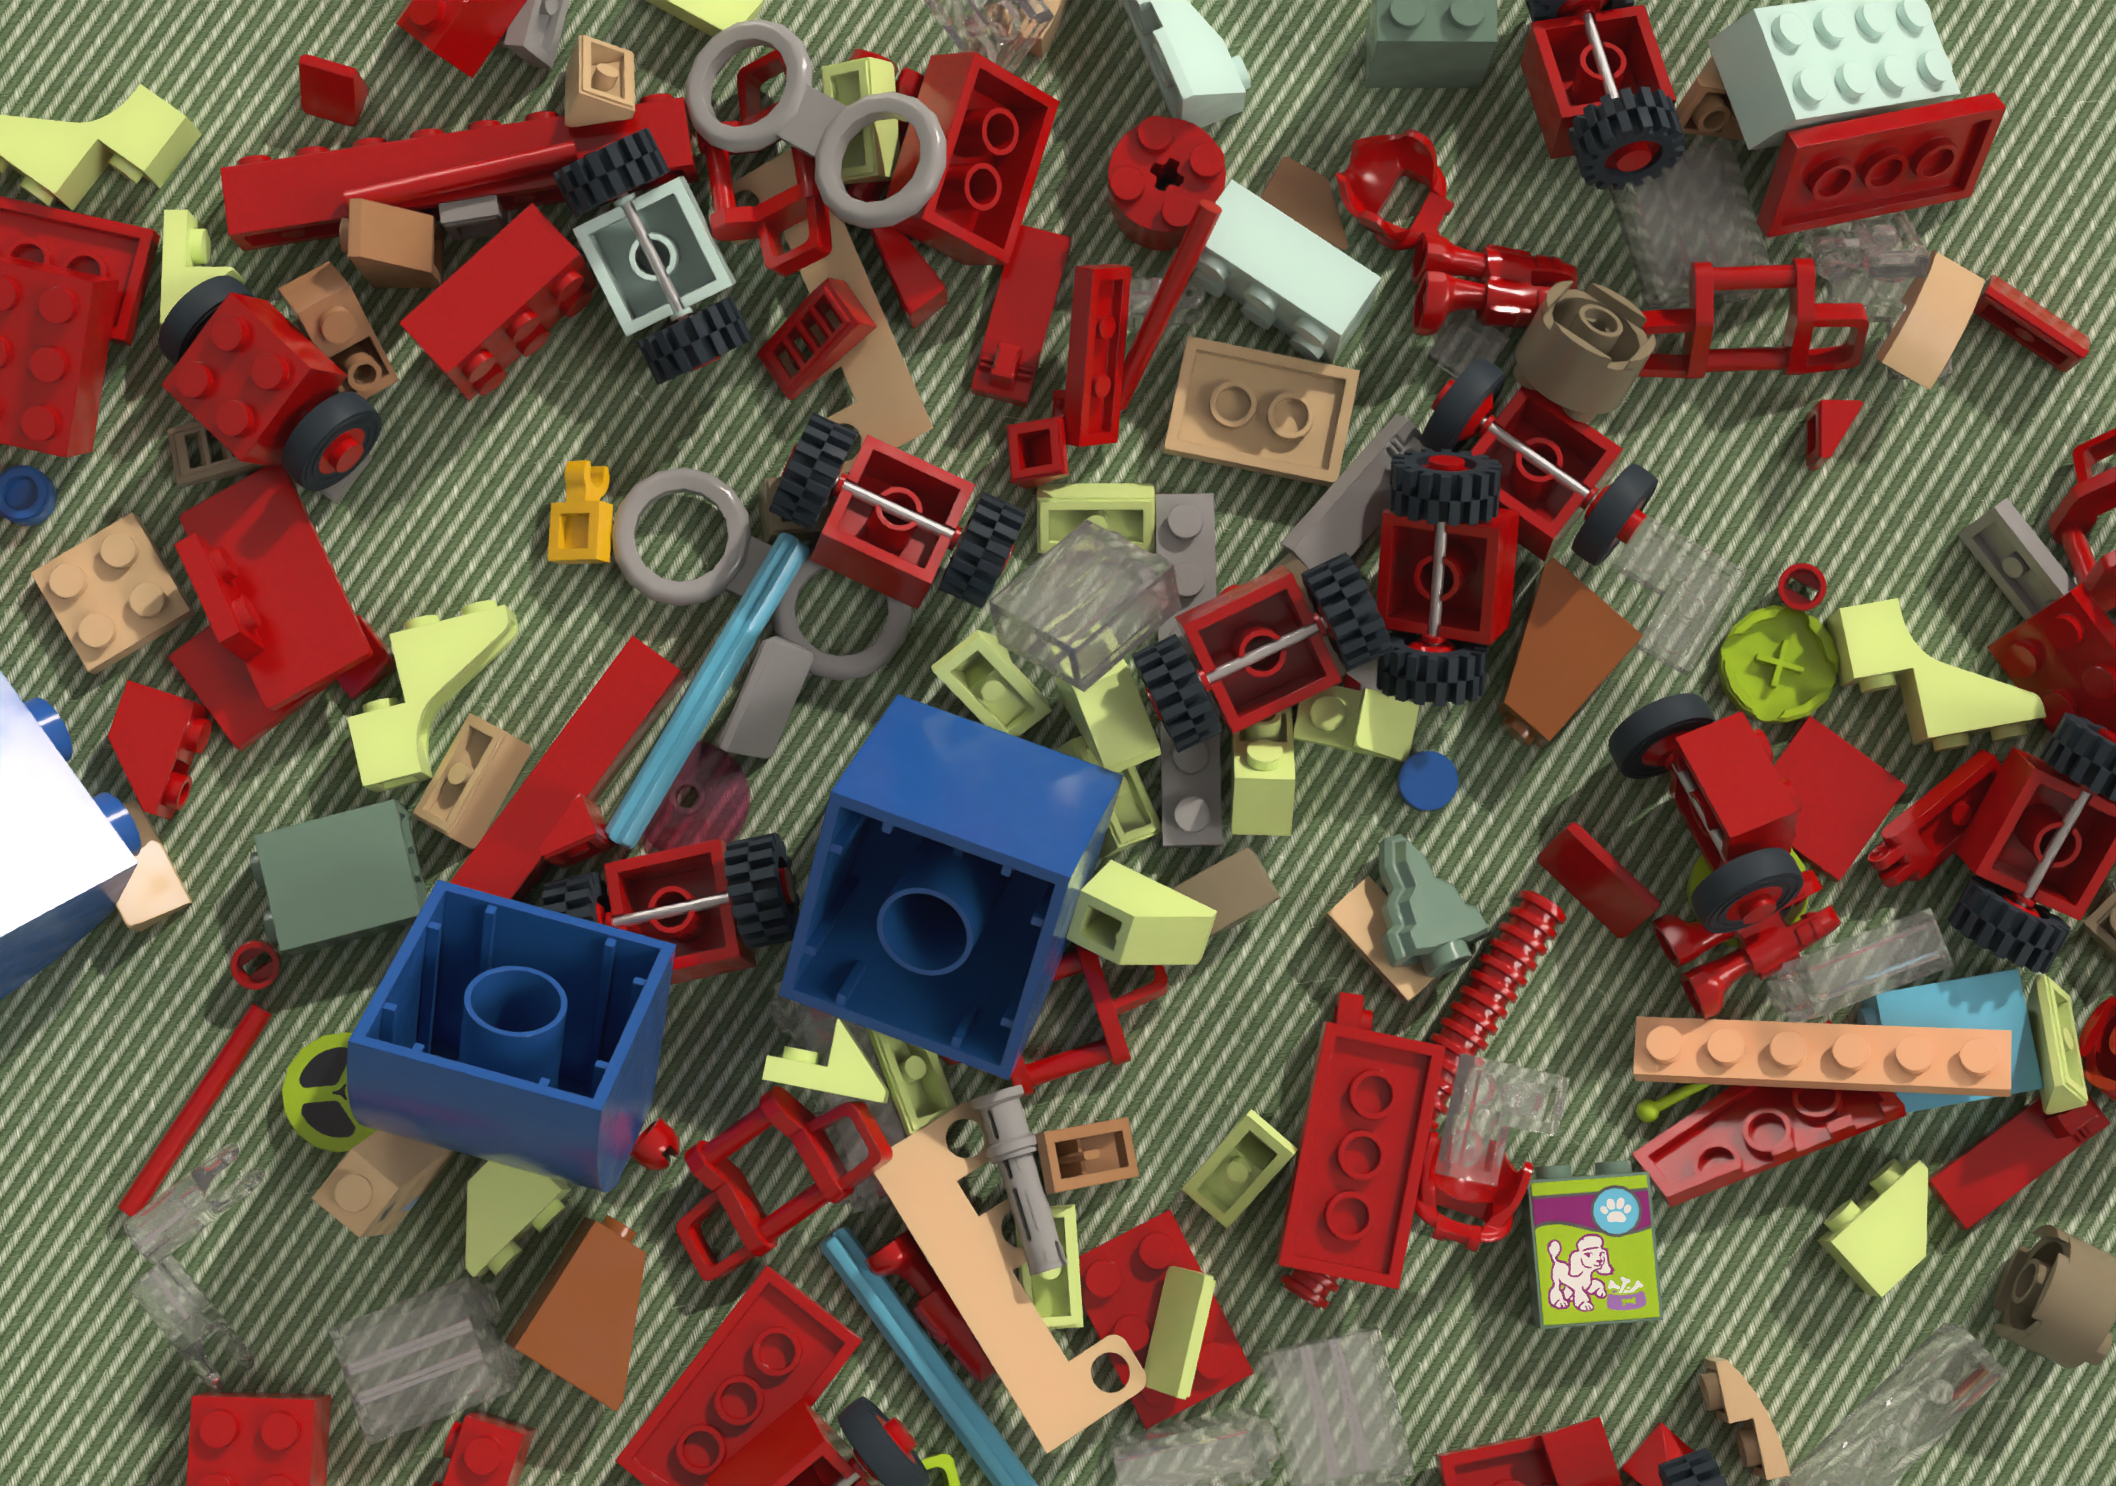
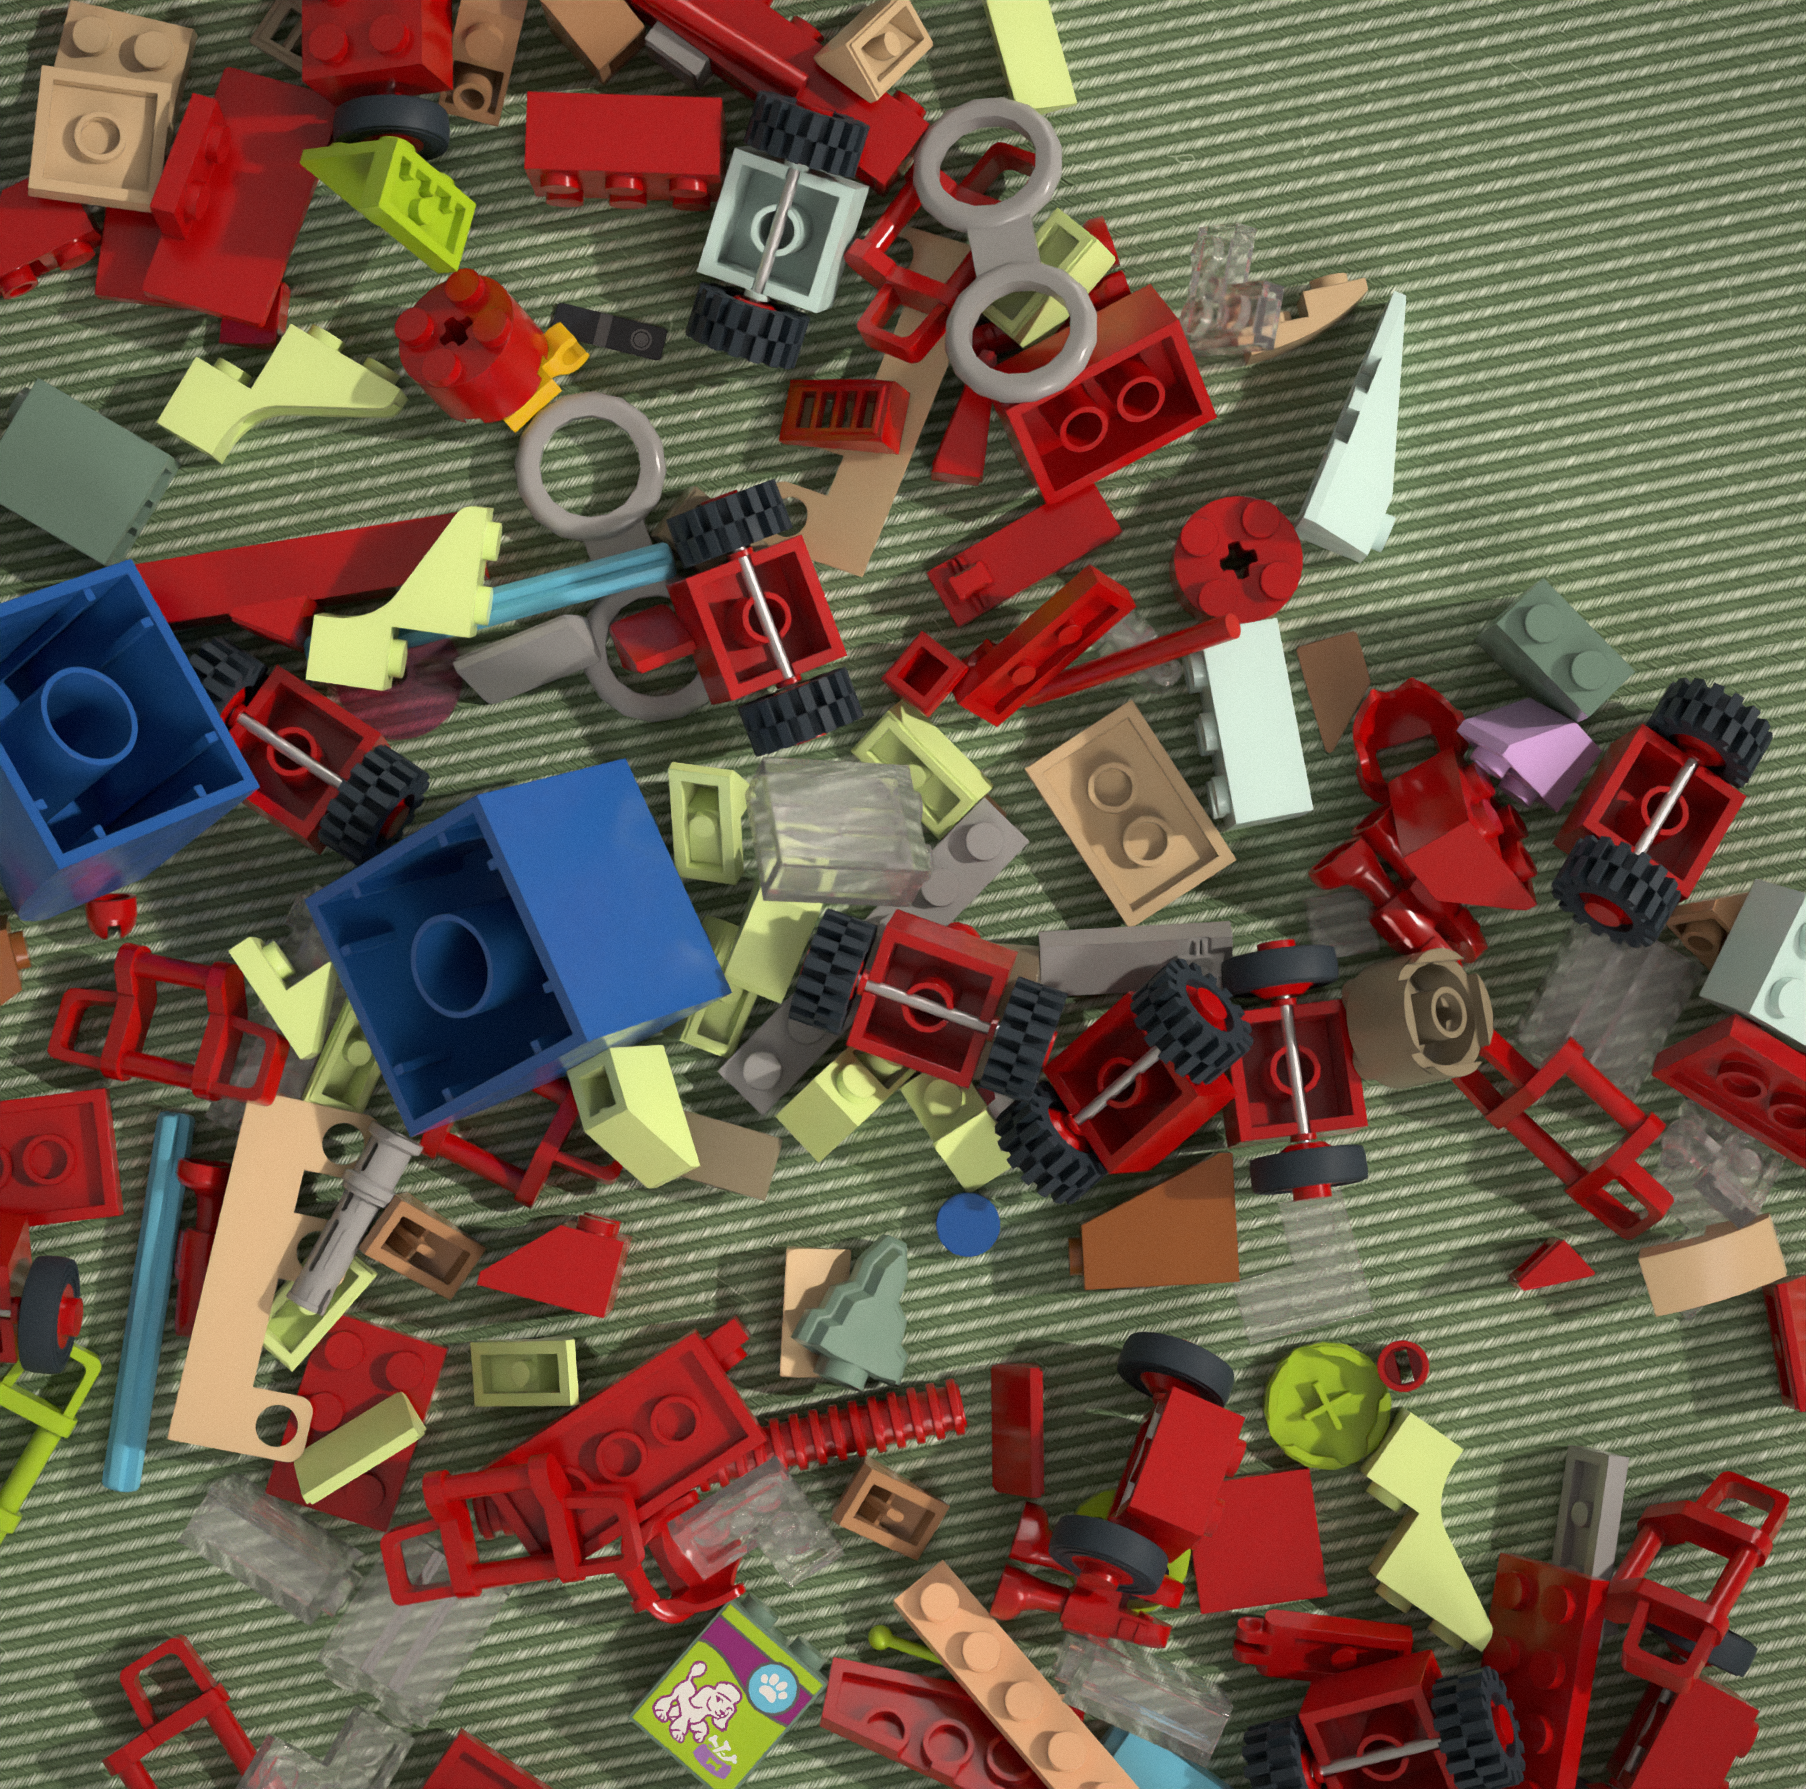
camera: 40 degrees right, 5 degrees up
(140, 637) = (98, 138): none -> tan plate
(371, 473) = (400, 195): none -> lime bracket
(472, 781) = (247, 497): tan slope -> none
(526, 531) = (472, 348): none -> red brick
(608, 437) = (612, 331): none -> black sticker
(667, 712) = (438, 597): none -> yellowish green arch
(835, 605) = (650, 639): none -> red slope
(1196, 1066) = (567, 1267): none -> red slope
(1342, 1338) = (446, 1501): none -> red bar
(1479, 113) = (1532, 750): none -> lavender slope
(1489, 205) = (1461, 836): none -> red slope
(1566, 1018) = (889, 1509): none -> medium nougat slope

